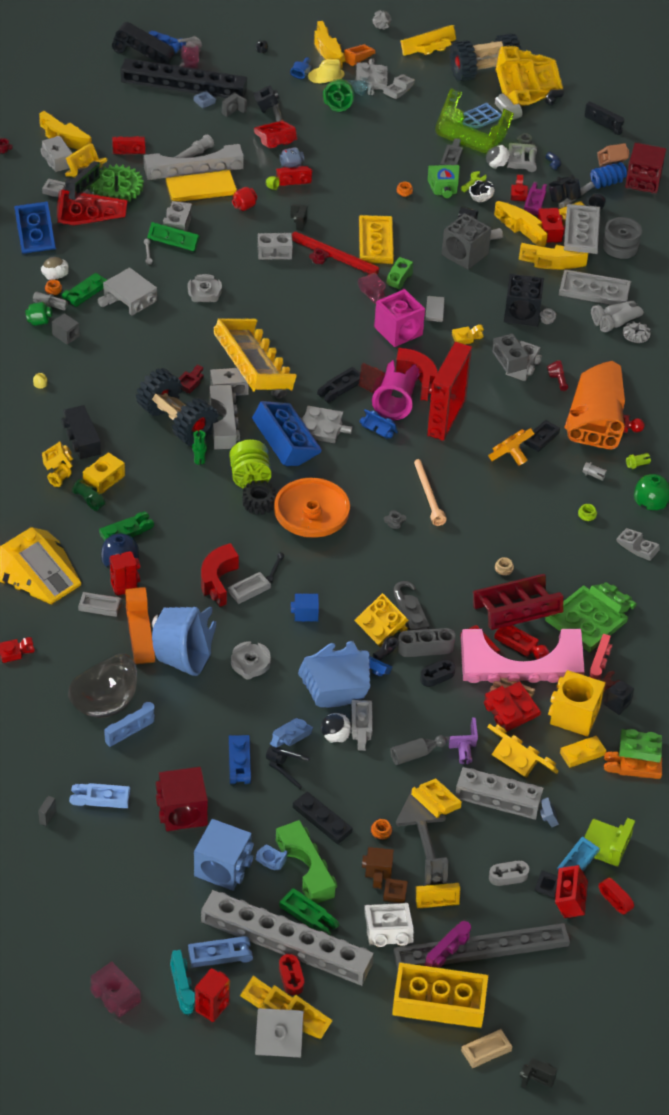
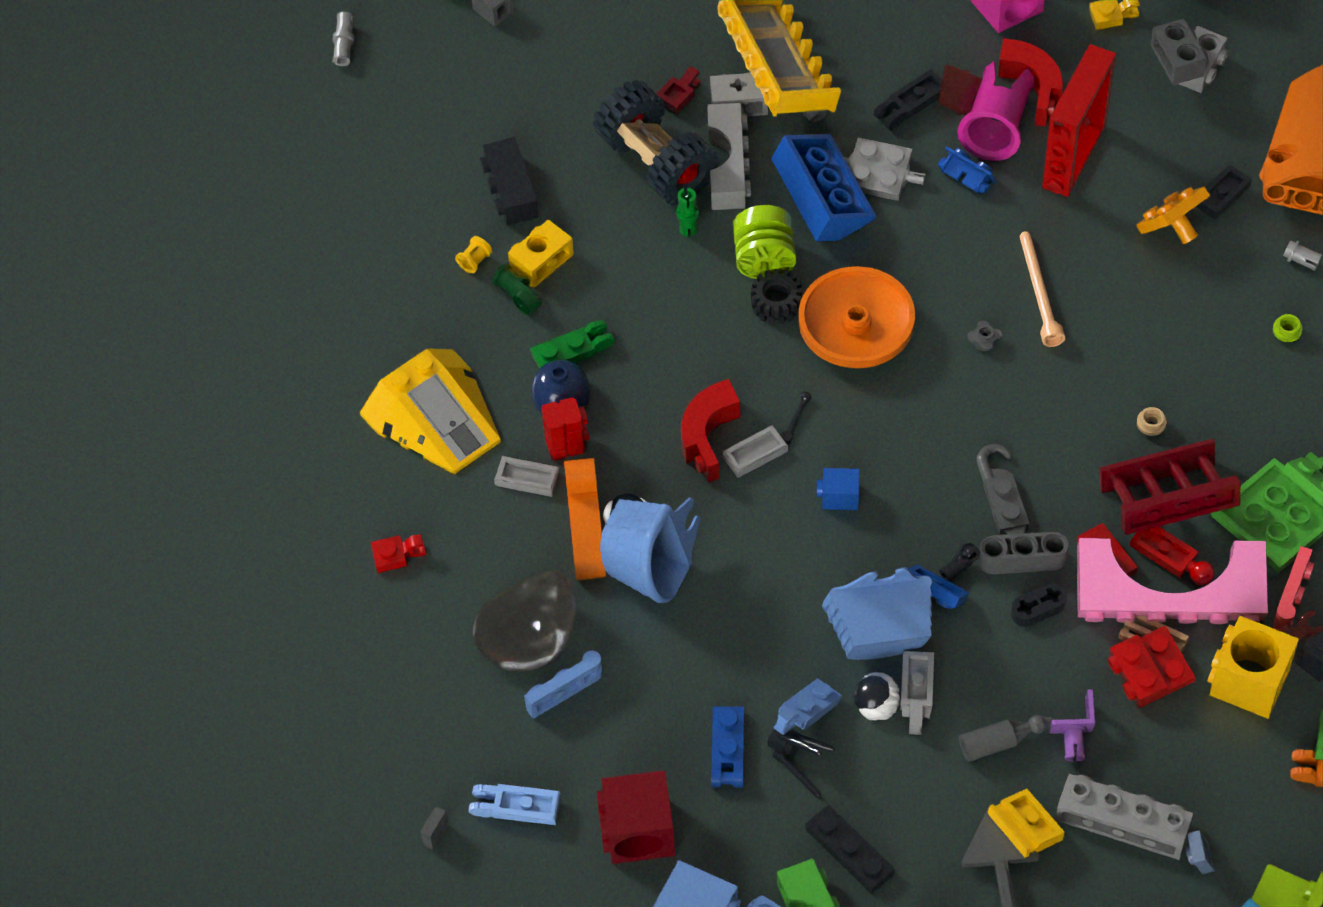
camera: 10 degrees right, 10 degrees up
(40, 380) = (449, 92): light yellow hinge -> none
(54, 455) = (469, 222): yellow bracket -> none
(247, 668) = (750, 592): light grey plate -> none
(381, 620) = (956, 514): yellow plate -> none
(381, 824) = (939, 864): orange plate -> none
(516, 756) = (1155, 751): yellow bracket -> none
(556, 371) = (1250, 76): dark red bar -> none
(582, 751) = (1258, 745): yellow plate -> none

